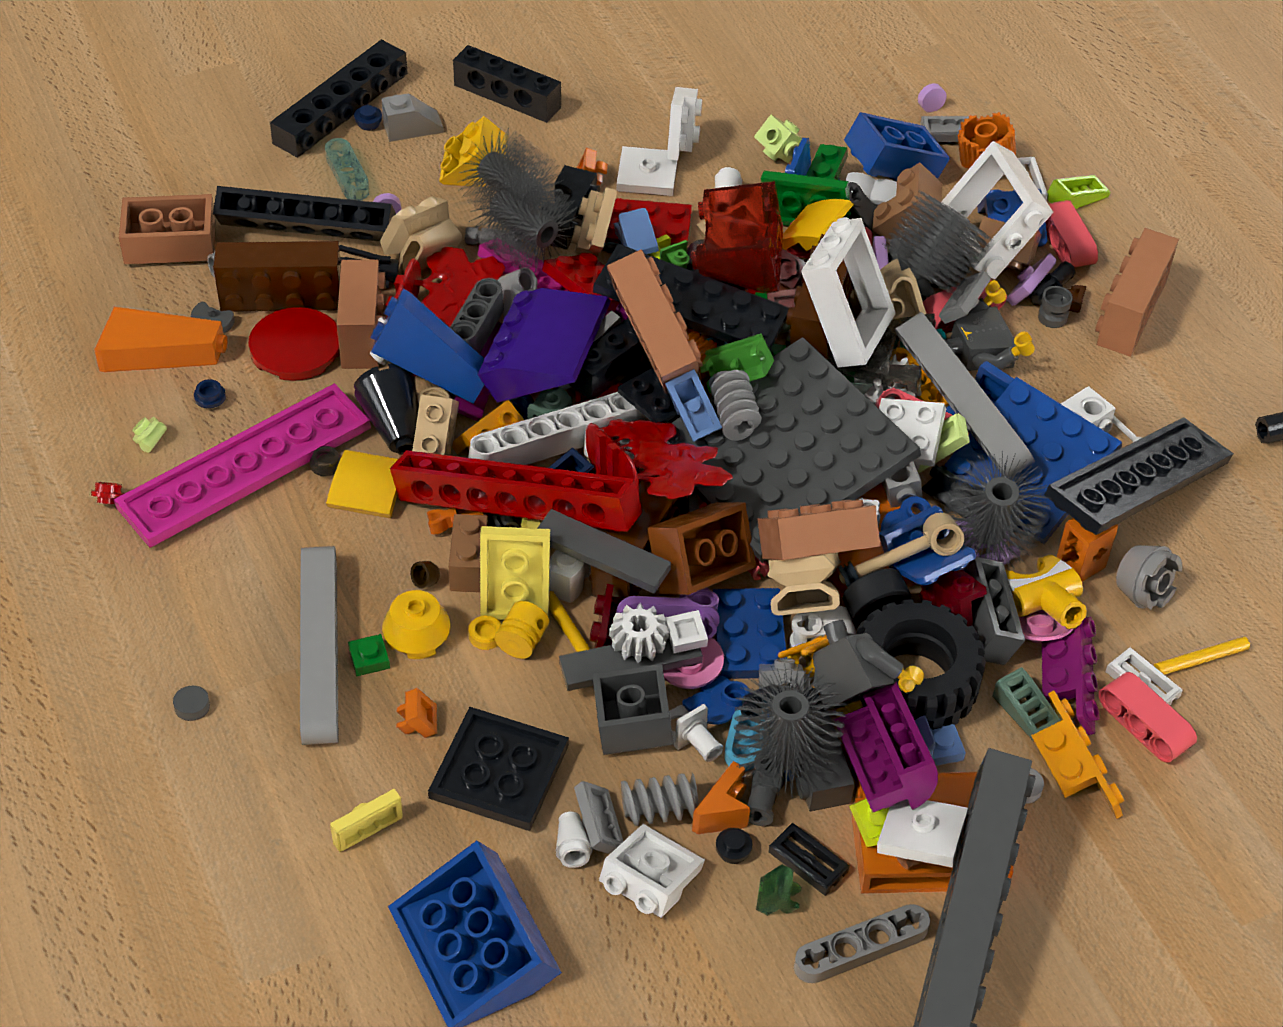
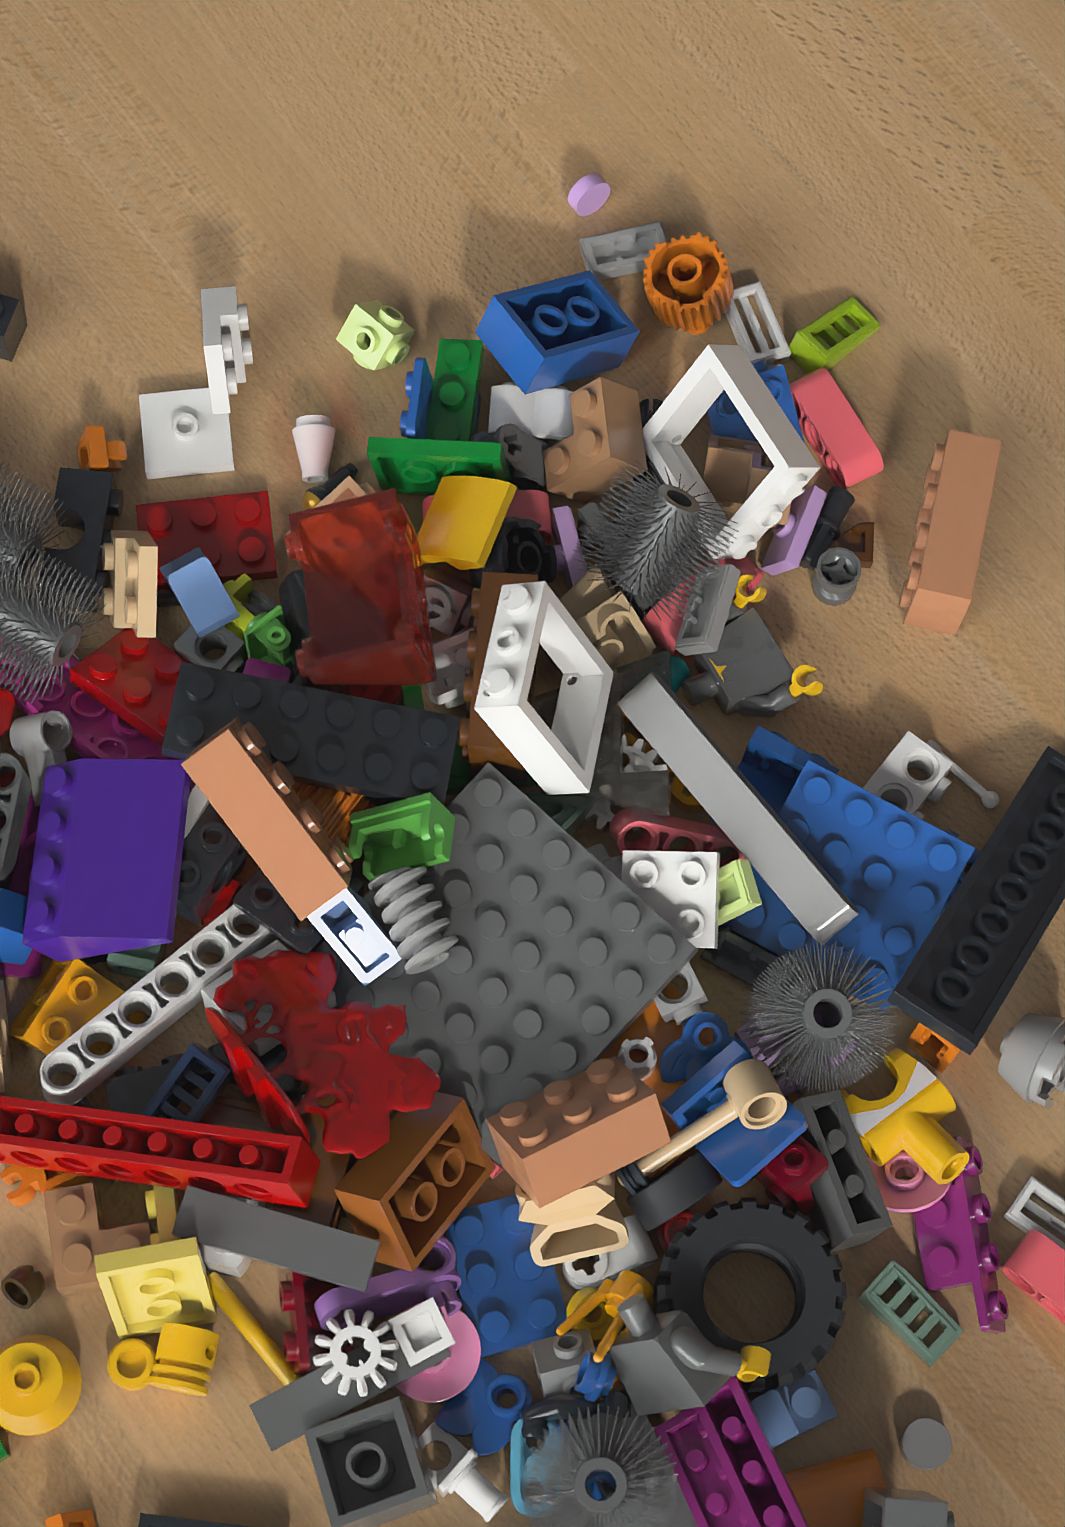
camera: 15 degrees left, 20 degrees up
(804, 664) = (595, 1377): none -> blue plate
(1069, 759) = (981, 1393): light orange bracket -> none

